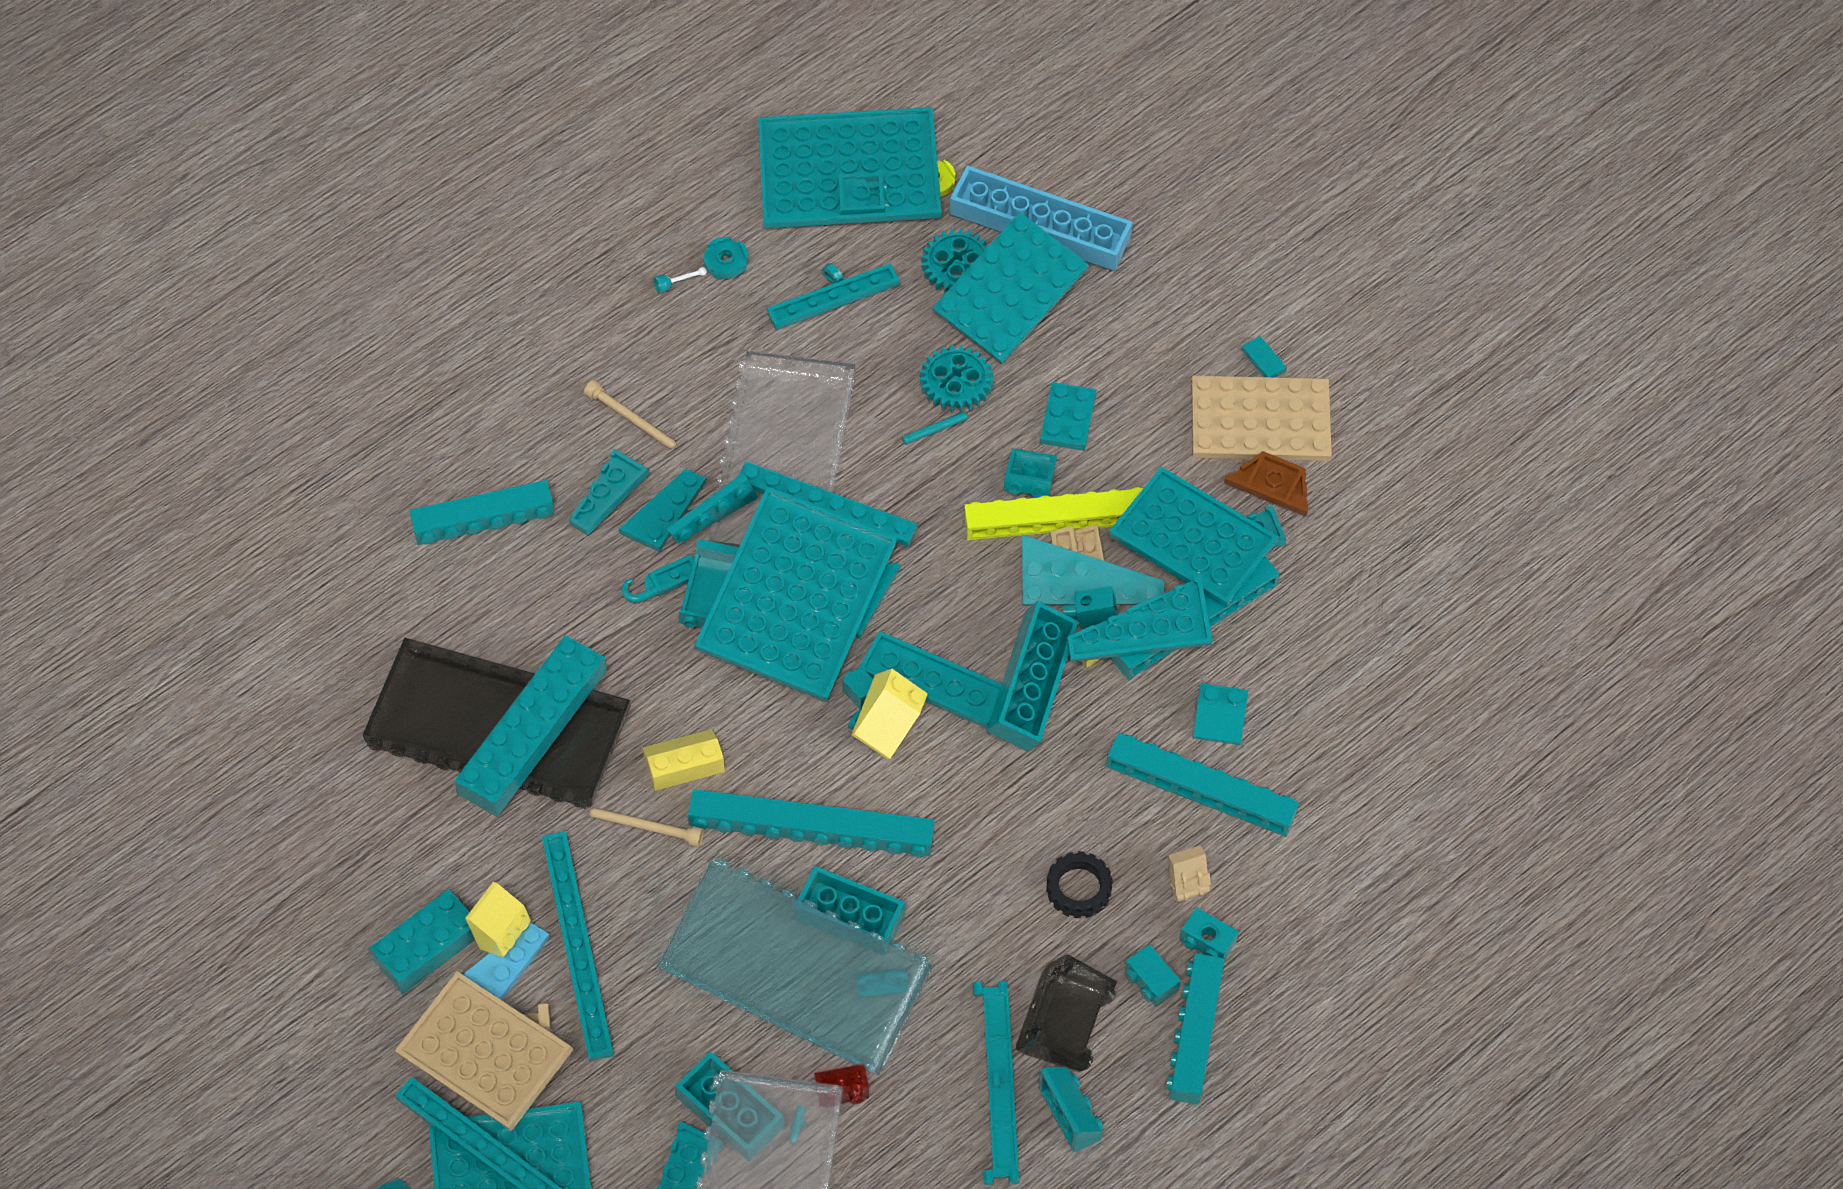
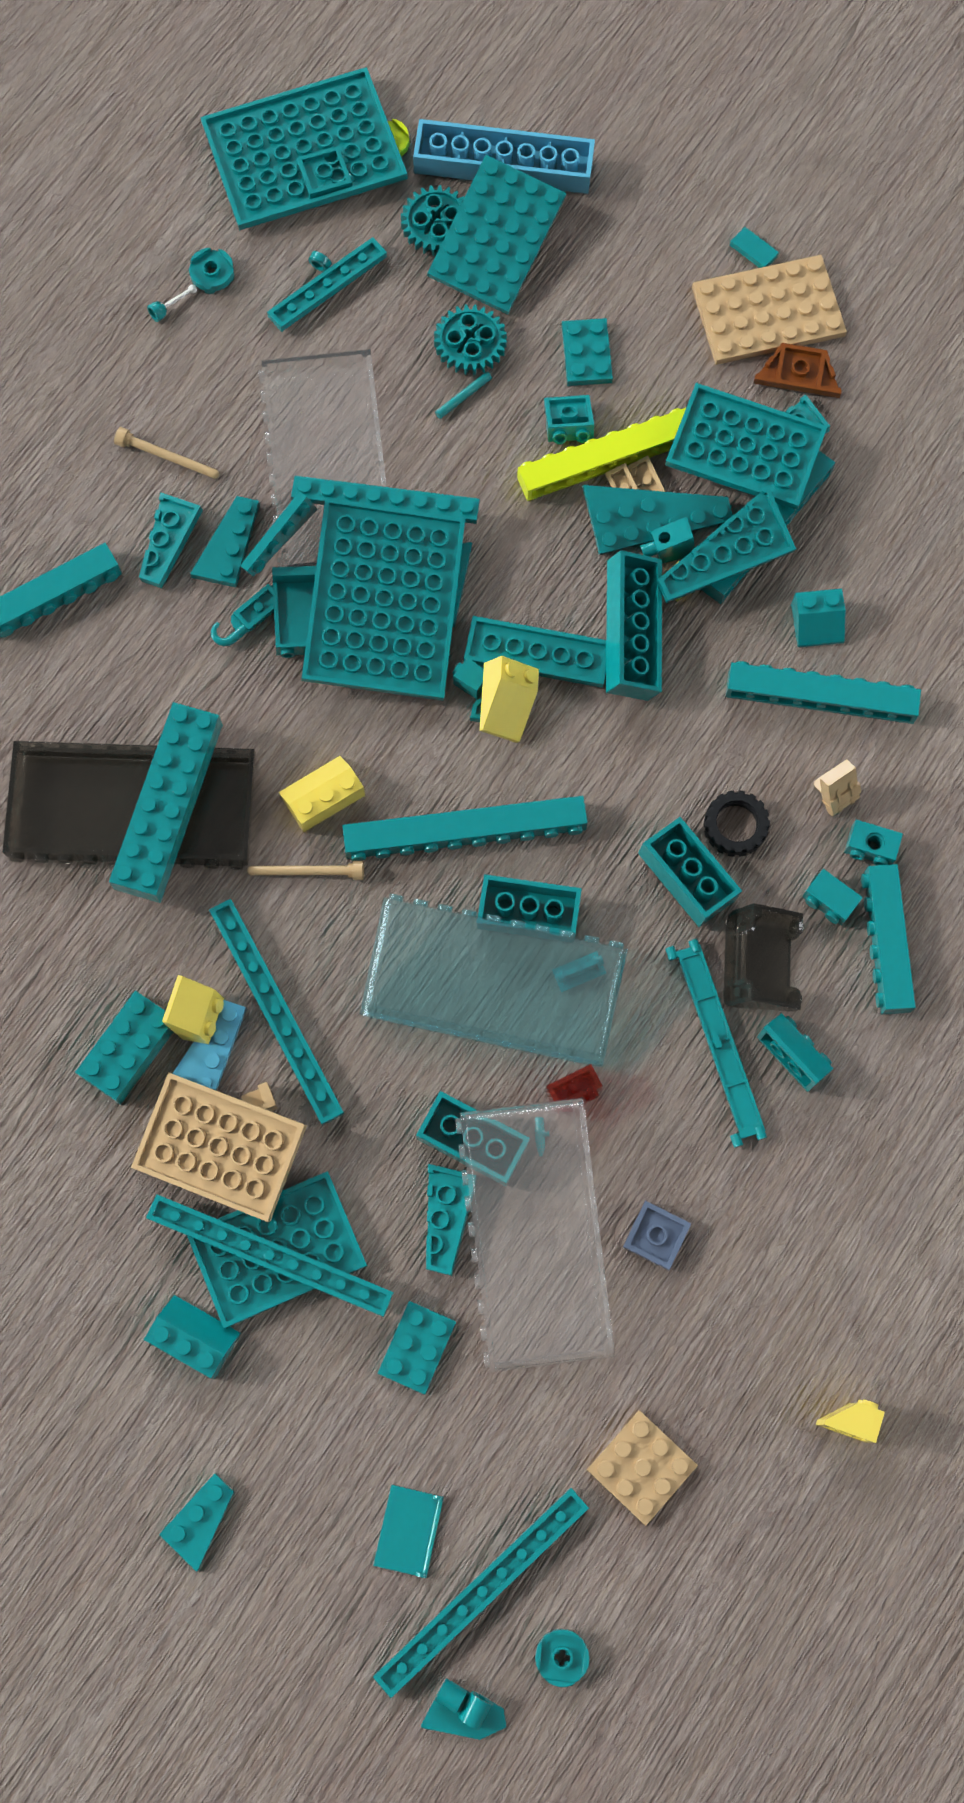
camera: 15 degrees left, 15 degrees up
(1017, 916) = (689, 871): none -> teal brick

